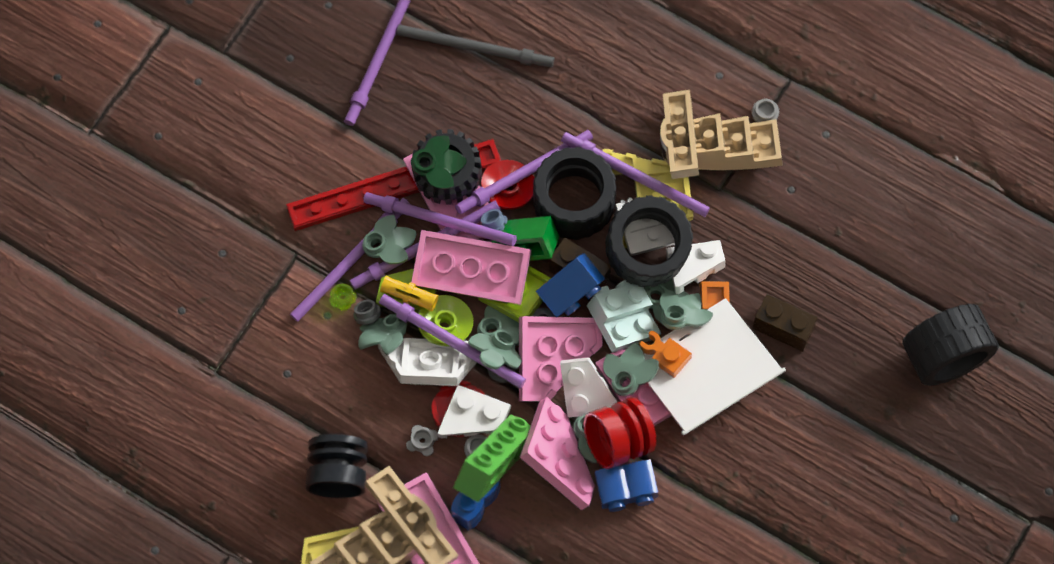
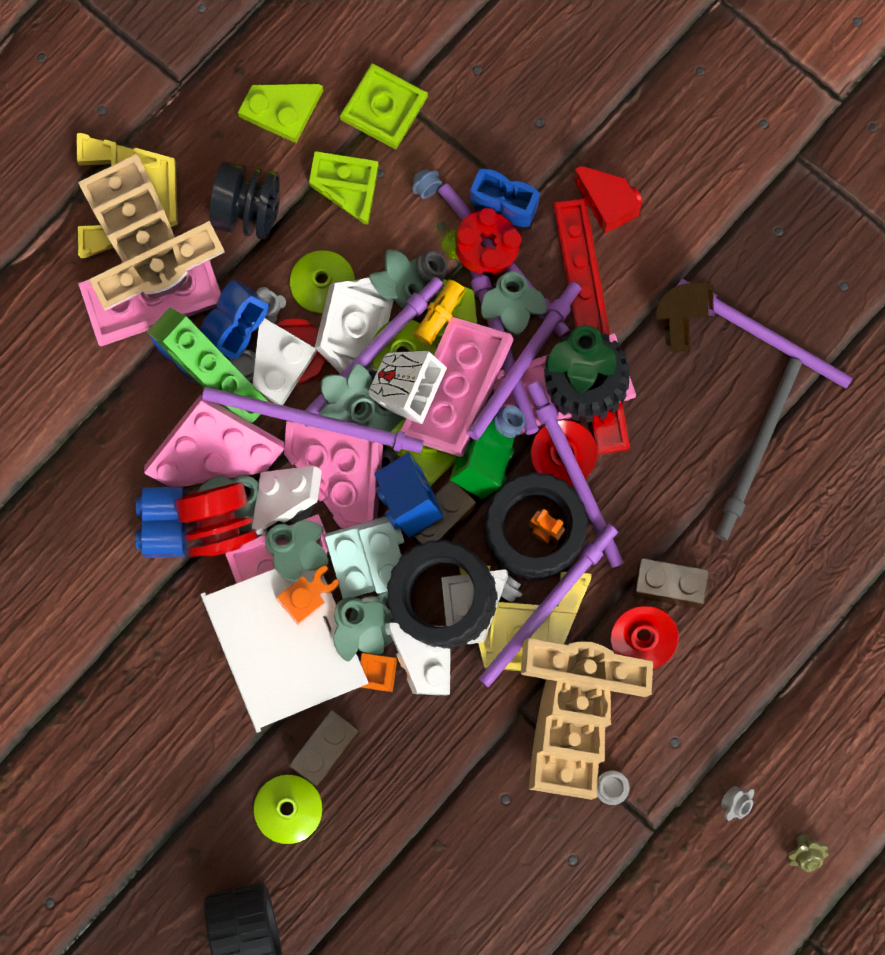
camera: 100 degrees right, 10 degrees up
(228, 376) = (383, 106): none -> lime plate
(241, 462) = (281, 107): none -> lime wing
(285, 184) = (608, 197): none -> red slope
(293, 330) = (426, 183): none -> sand blue plate
(298, 263) = (508, 198): none -> blue brick
(302, 394) = (346, 182): none -> lime wing
(334, 257) = (496, 228): none -> red plate
(369, 111) = (679, 306): none -> dark brown brick
(392, 414) = (303, 282): none -> lime dish
(440, 455) = (236, 316): none -> blue brick
(478, 303) = (407, 383): none -> white torso
(527, 300) = (242, 402): none -> medium lavender bar
(572, 187) = (546, 528): none -> orange plate
(598, 91) = (670, 583): none -> brick
(643, 102) = (657, 646): none -> red dish
(757, 21) = (737, 802): none -> light grey plate
(835, 360) = (304, 817): none -> lime dish

